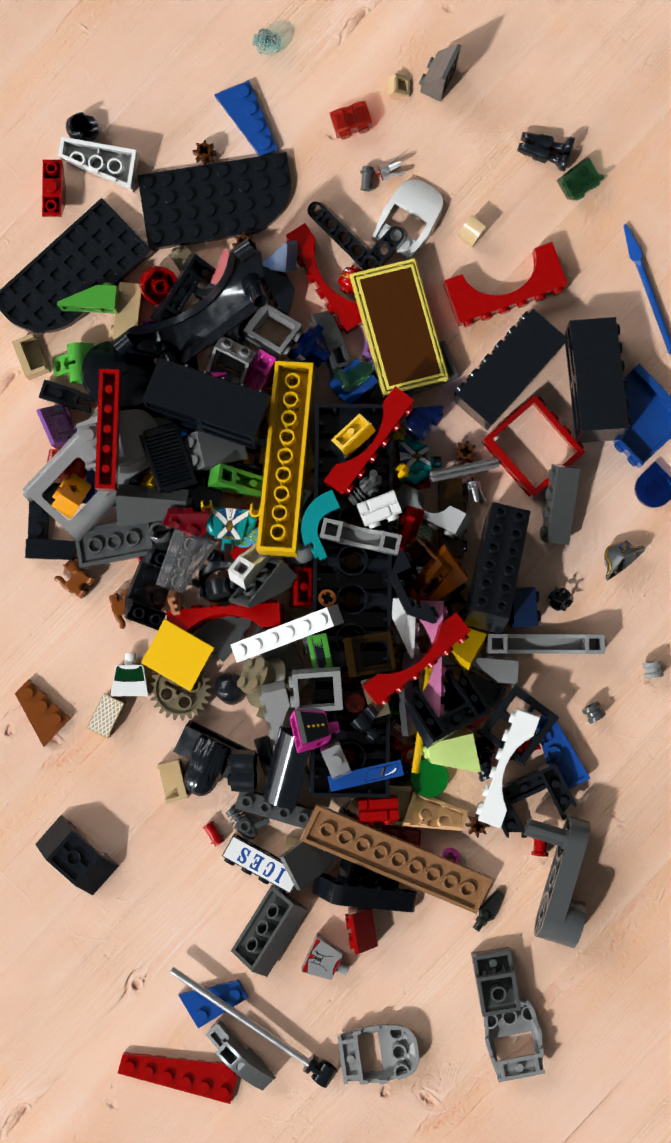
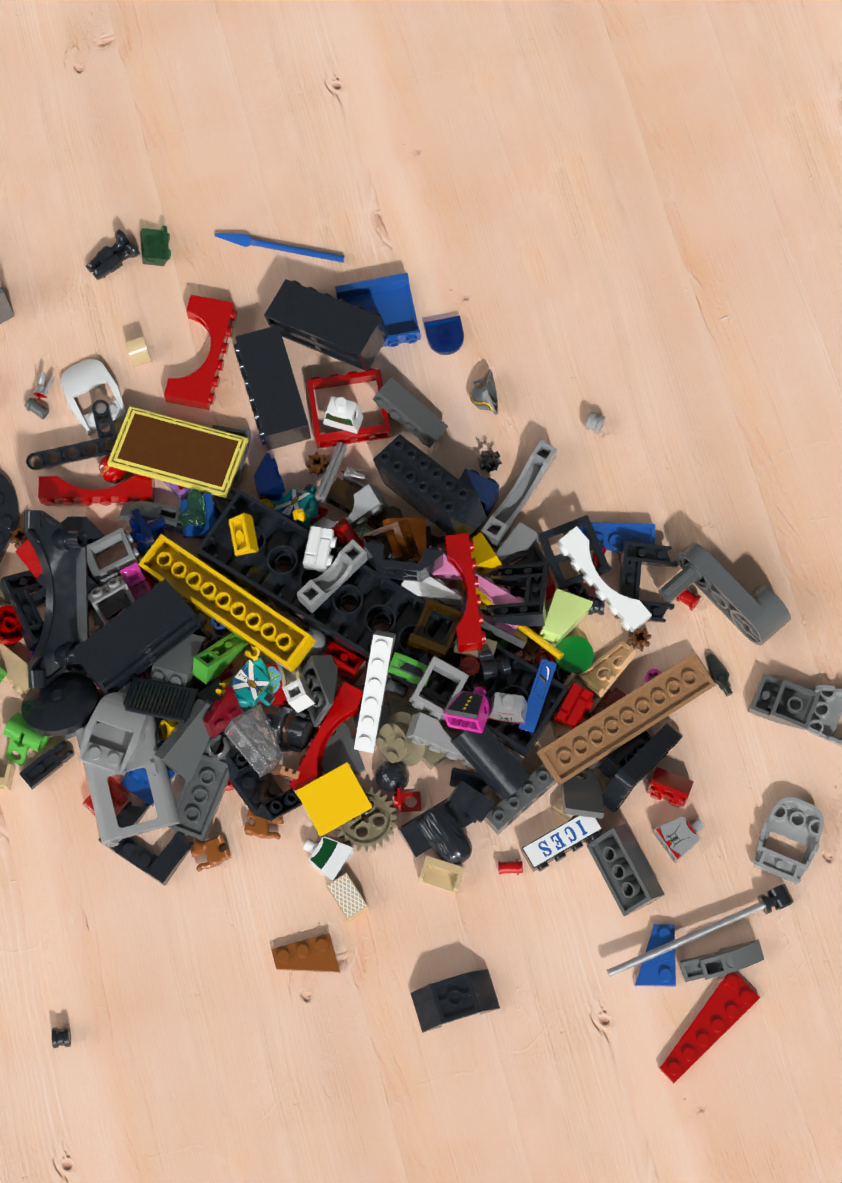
camera: 55 degrees left, 15 degrees down
(57, 424) = (67, 785): medium lavender slope -> none
(70, 495) = (135, 805): light orange brick -> none
(108, 430) = (104, 727): red brick -> none
(212, 708) = (400, 797): none -> red bracket
(245, 825) = (520, 834): dark grey piece -> none
(283, 258) = (56, 507): medium blue slope -> none
(316, 511) = (296, 613): teal arch -> none
(321, 600) = (366, 630): dark orange bush -> none
(344, 474) = (243, 489): red arch -> none
(368, 486) = (294, 548): dark grey piece -> none
(519, 449) = (343, 415): none -> white torso
(593, 712) = (602, 489): dark grey wheel -> none

